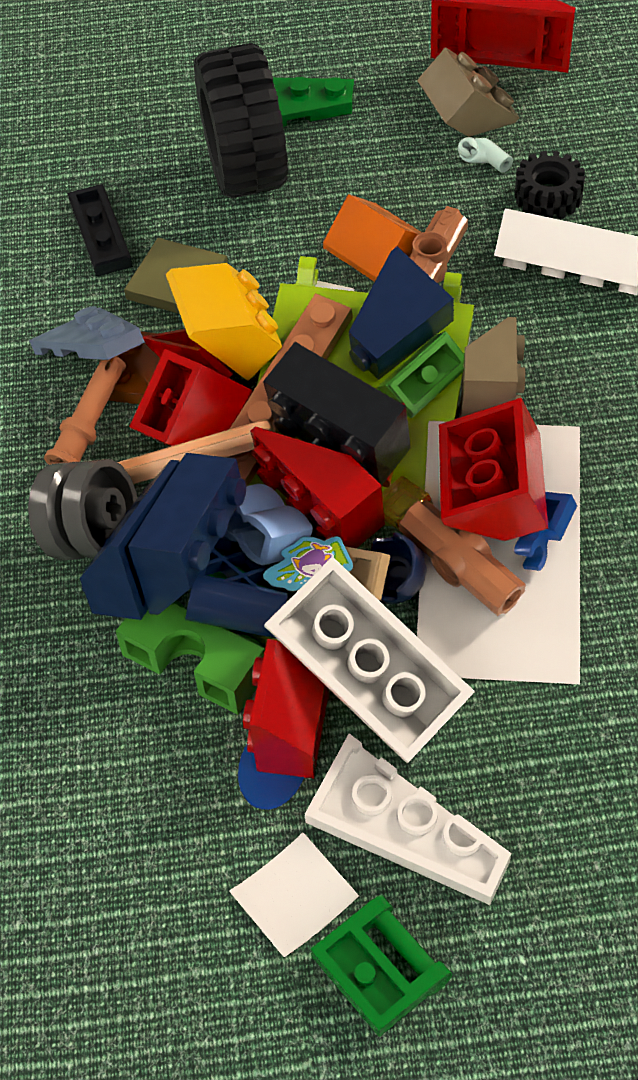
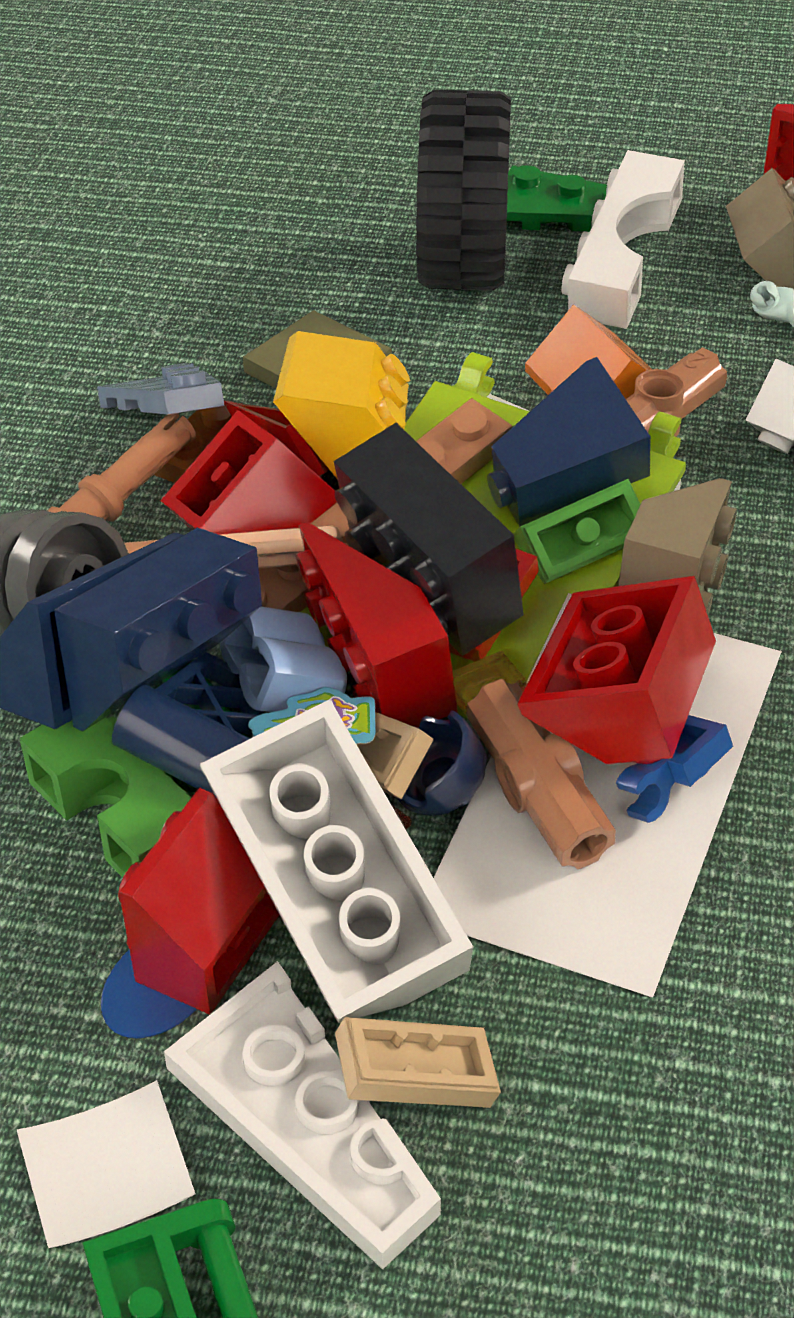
camera: 15 degrees right, 10 degrees down
(99, 230) = (247, 290): black tile -> none
(357, 157) = (638, 201): none -> white arch
(461, 773) = (416, 1063): none -> tan plate

